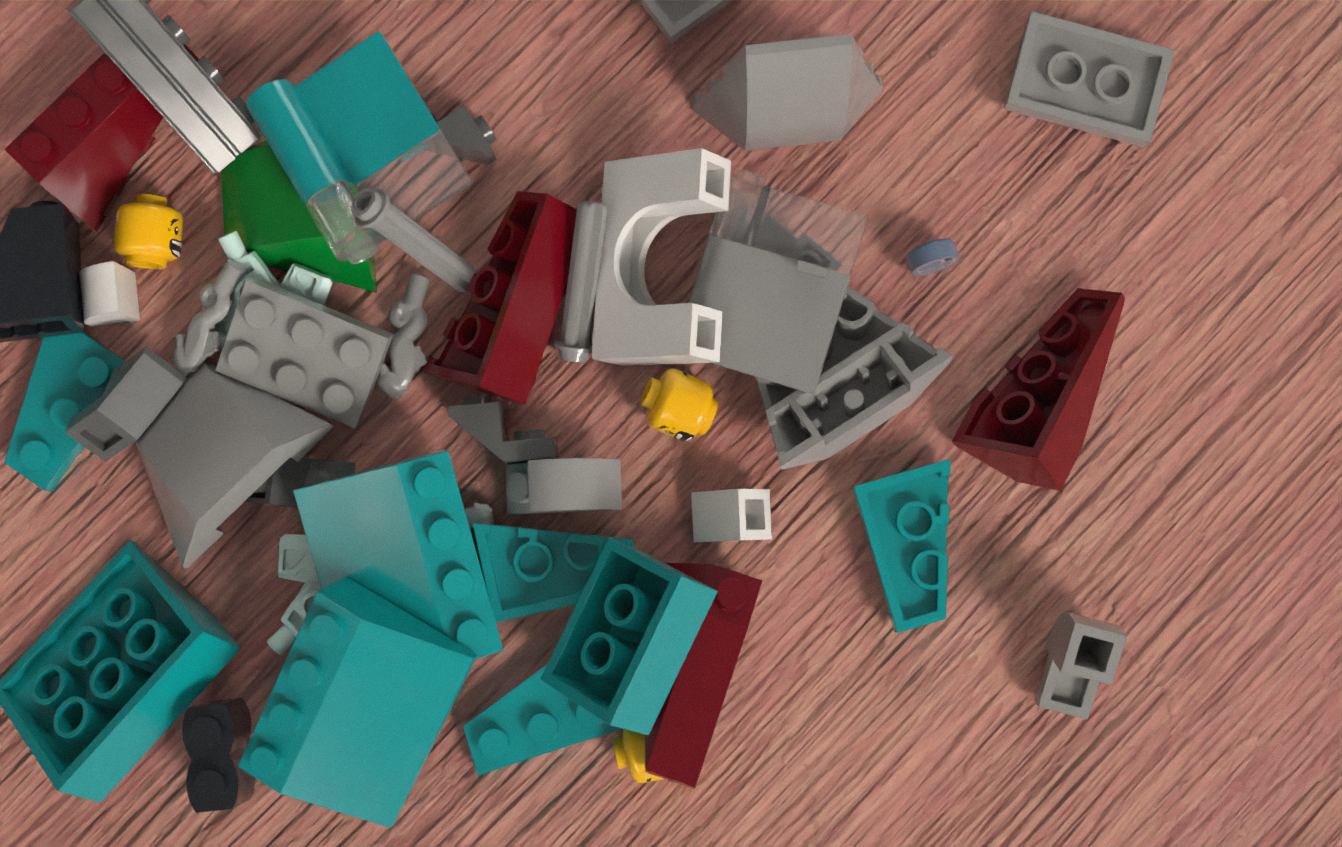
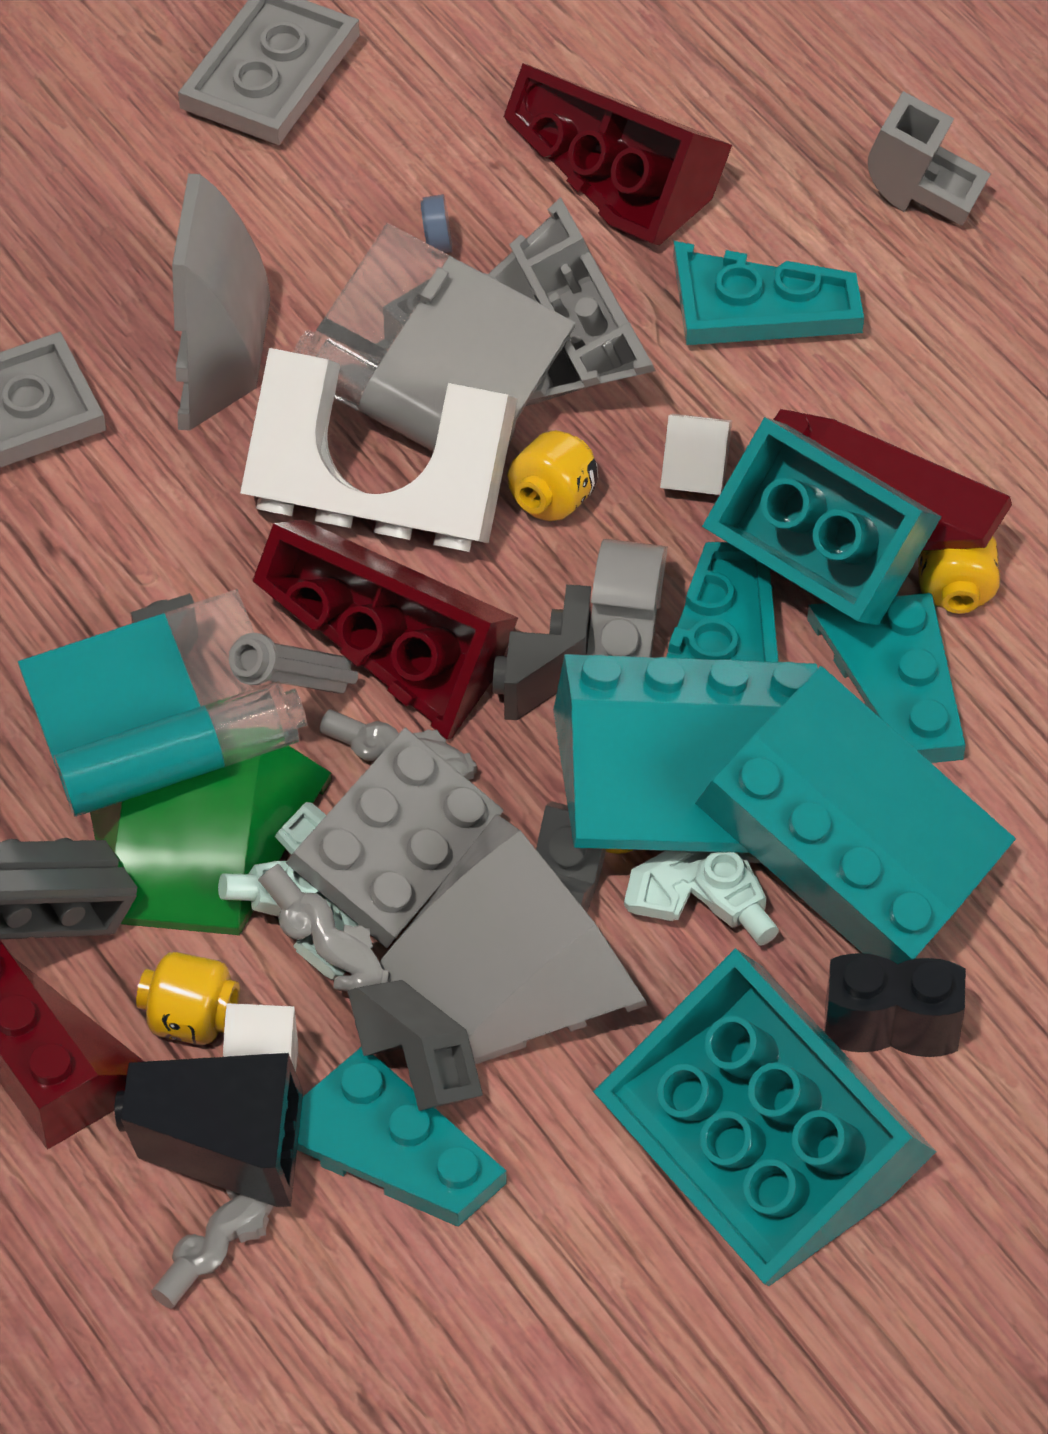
camera: 80 degrees left, 30 degrees down
(582, 282) = (380, 533): light grey axle -> none

